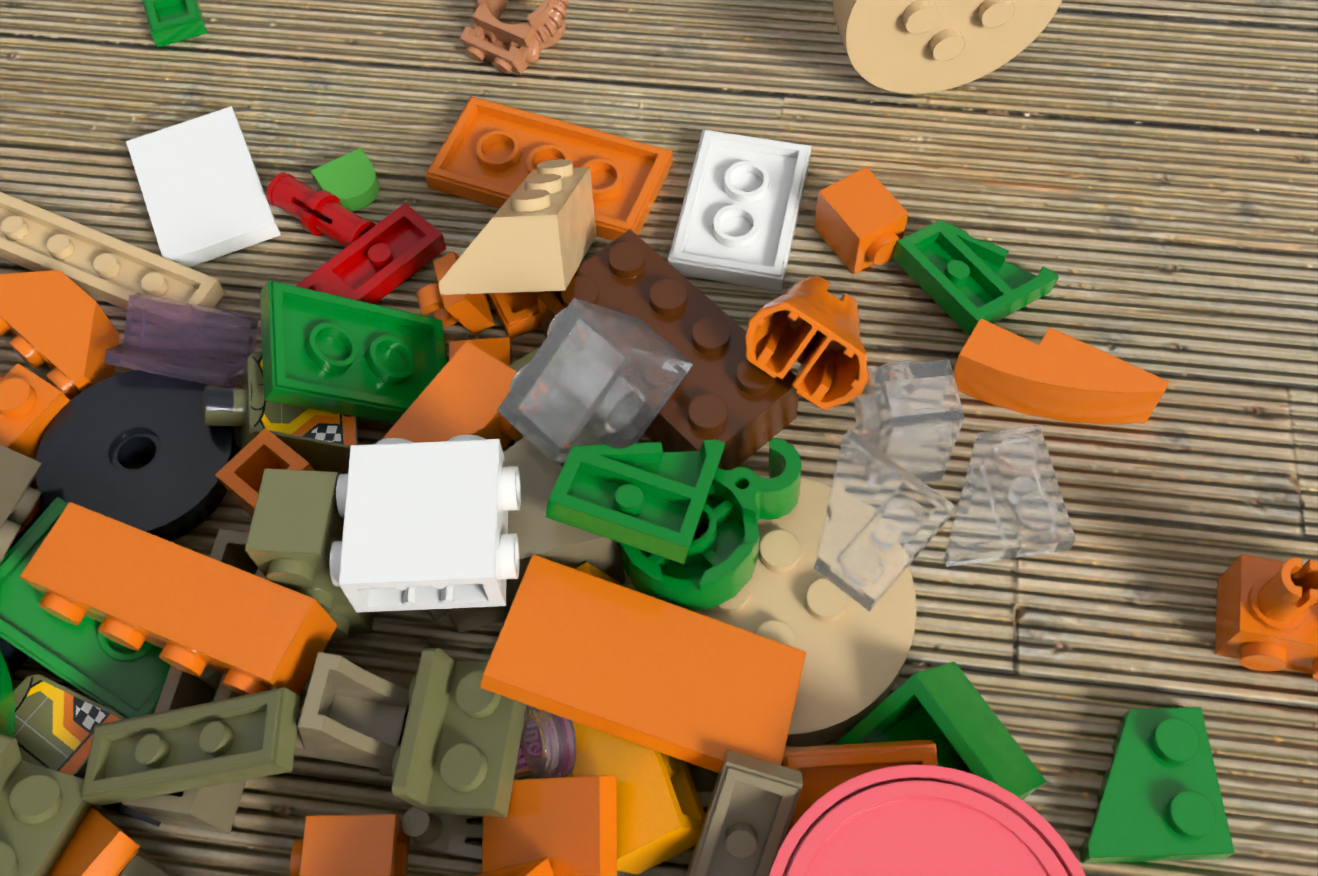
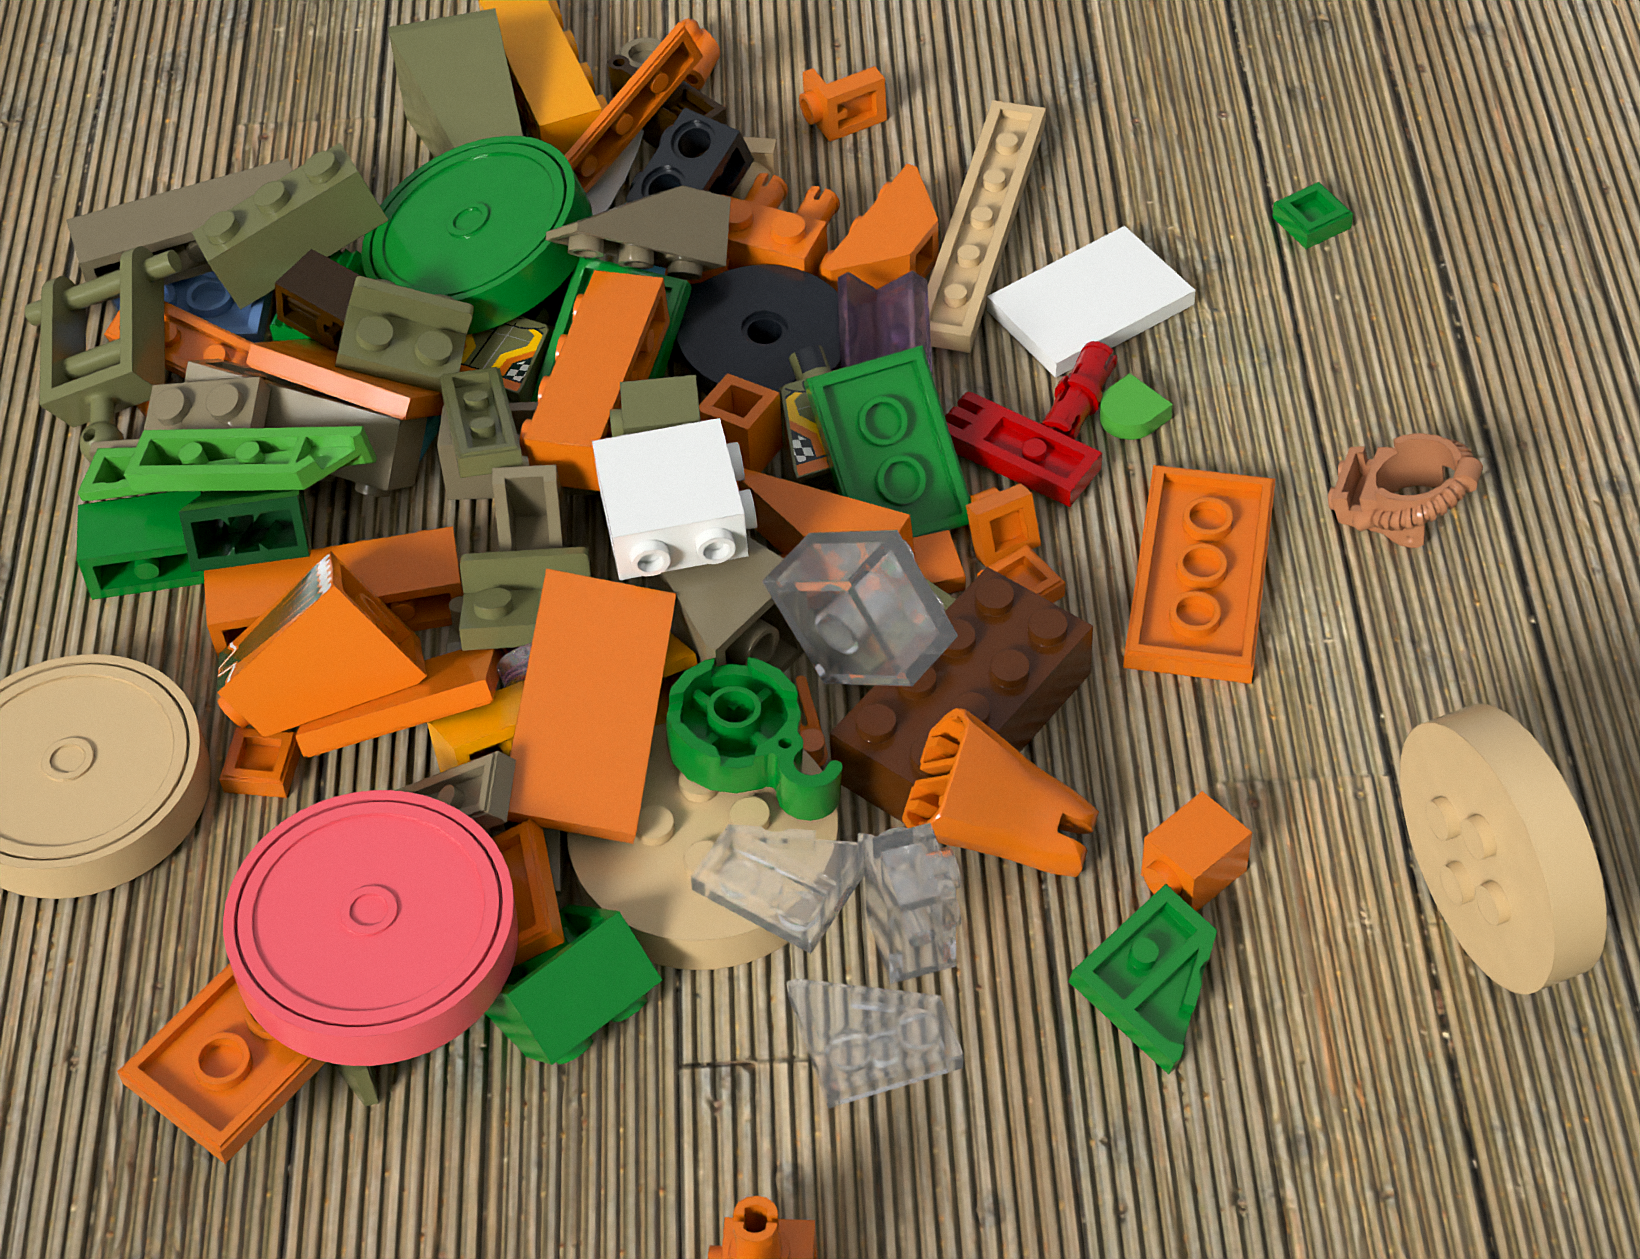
camera: 80 degrees right, 10 degrees down
(532, 238) = (1056, 544): tan slope -> none
(637, 494) = (743, 654): green wing -> none
(740, 210) = (1173, 745): white tile -> none
(1054, 379) = (1025, 1053): orange slope -> none
(1159, 793) = (569, 1188): green wing -> none

